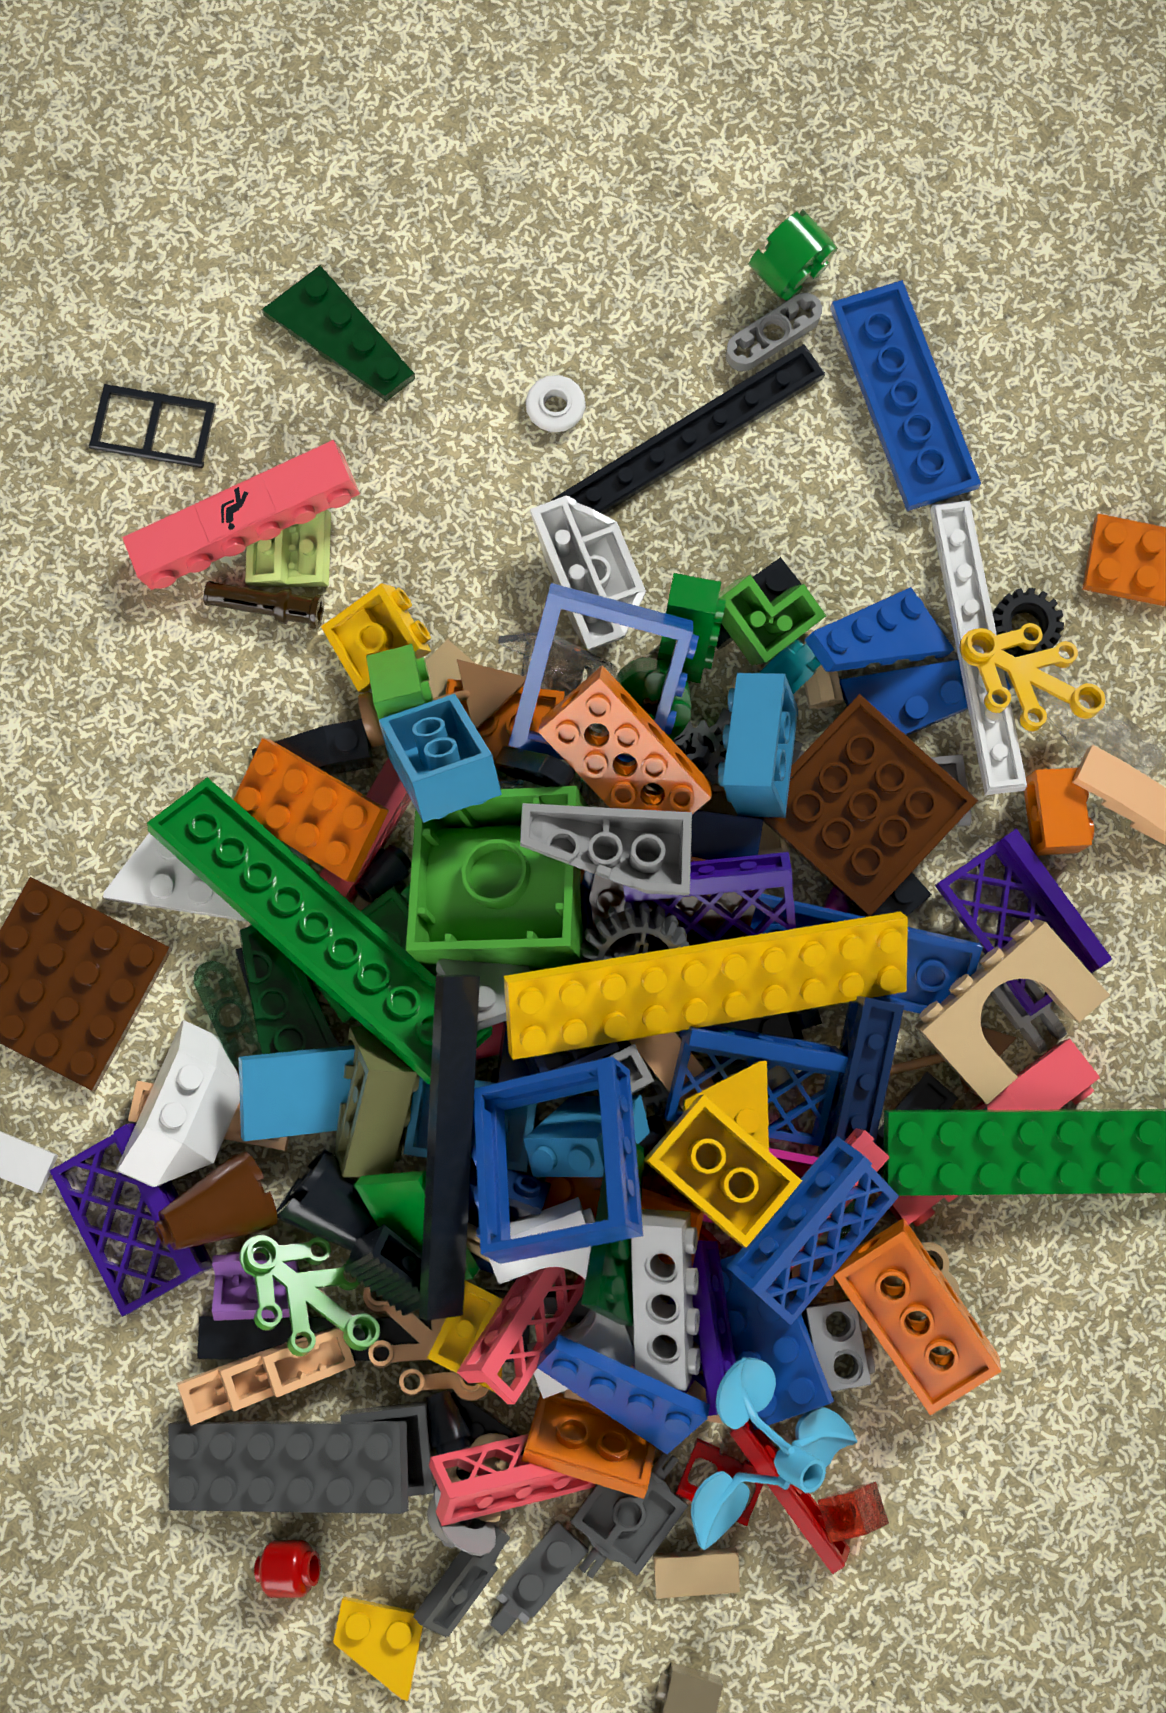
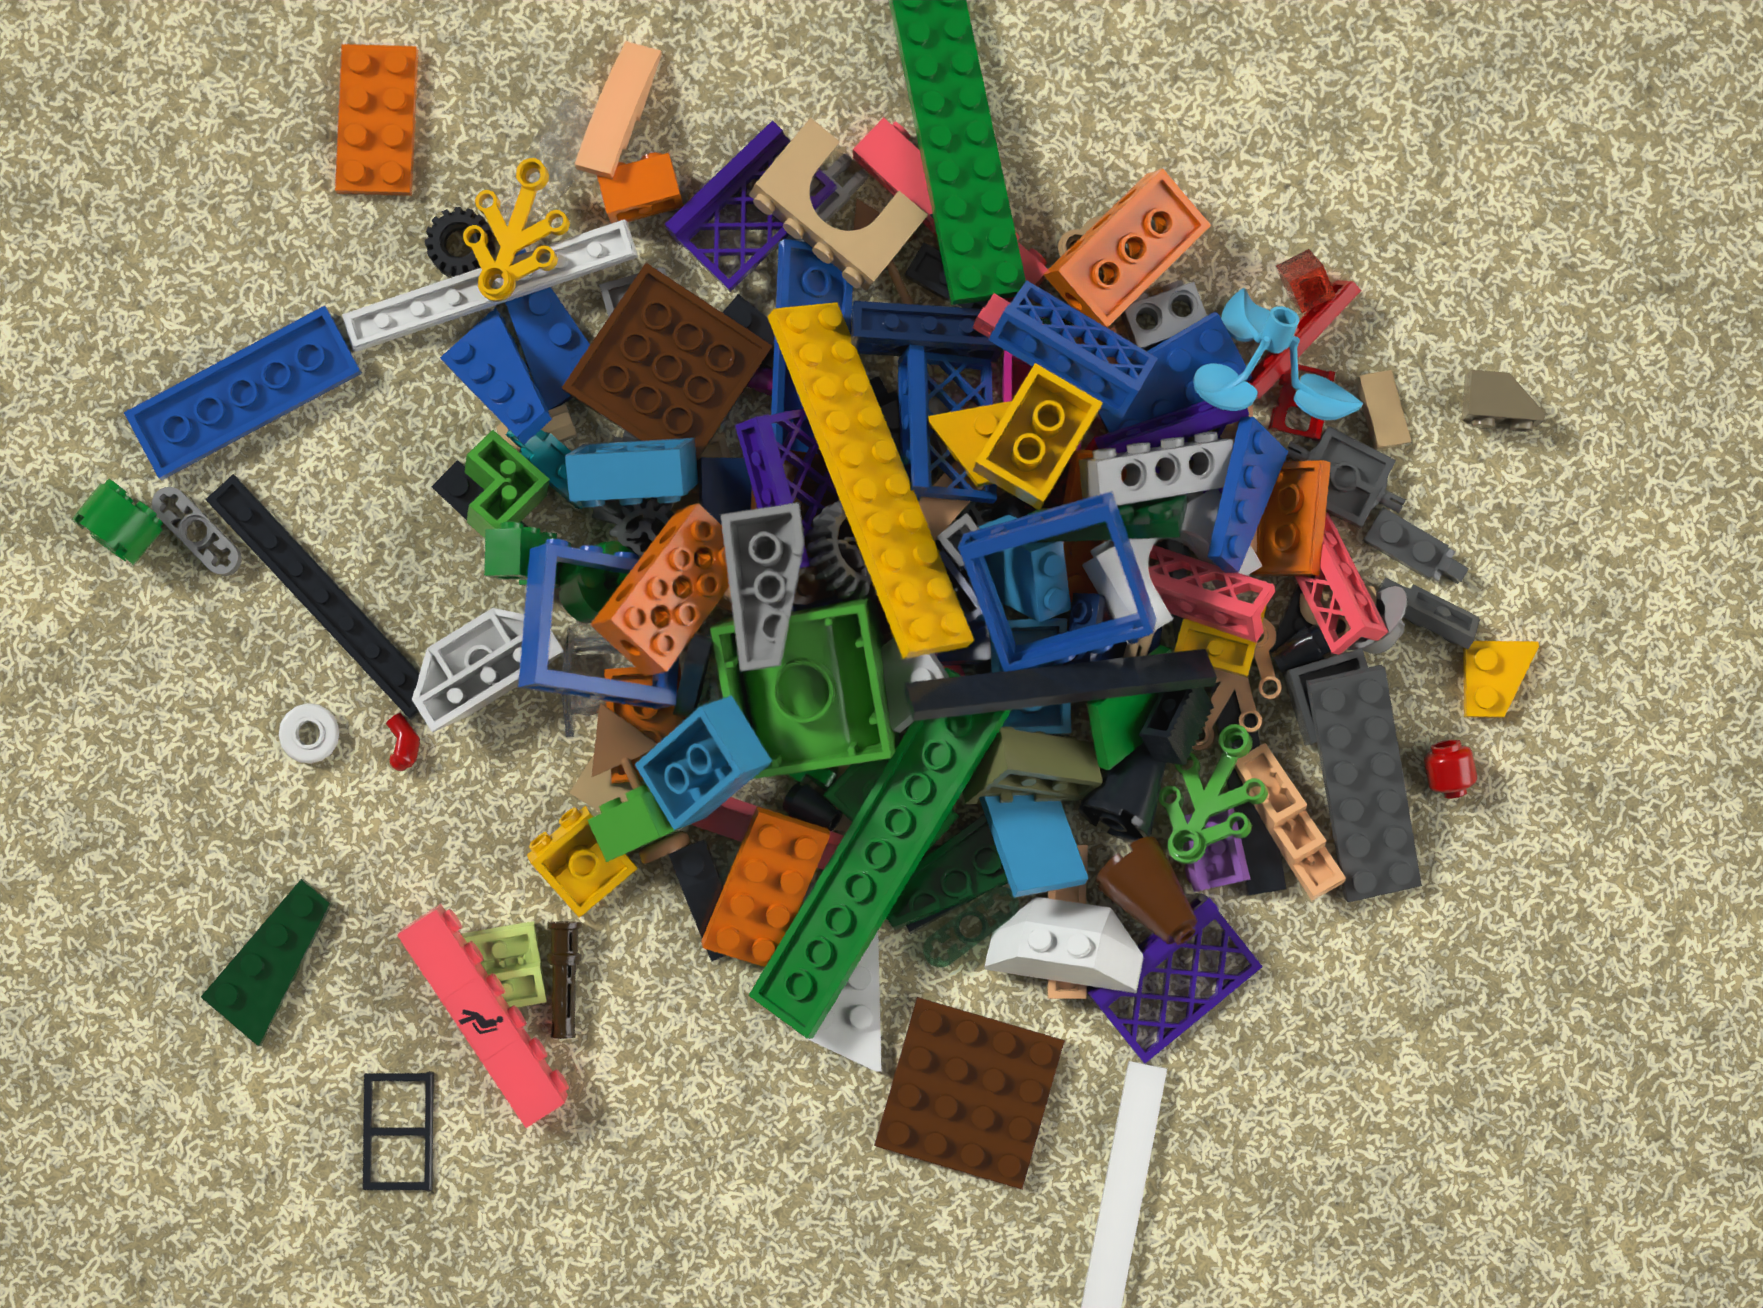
camera: 100 degrees left, 5 degrees up
(527, 493) = (407, 743): none -> red arm

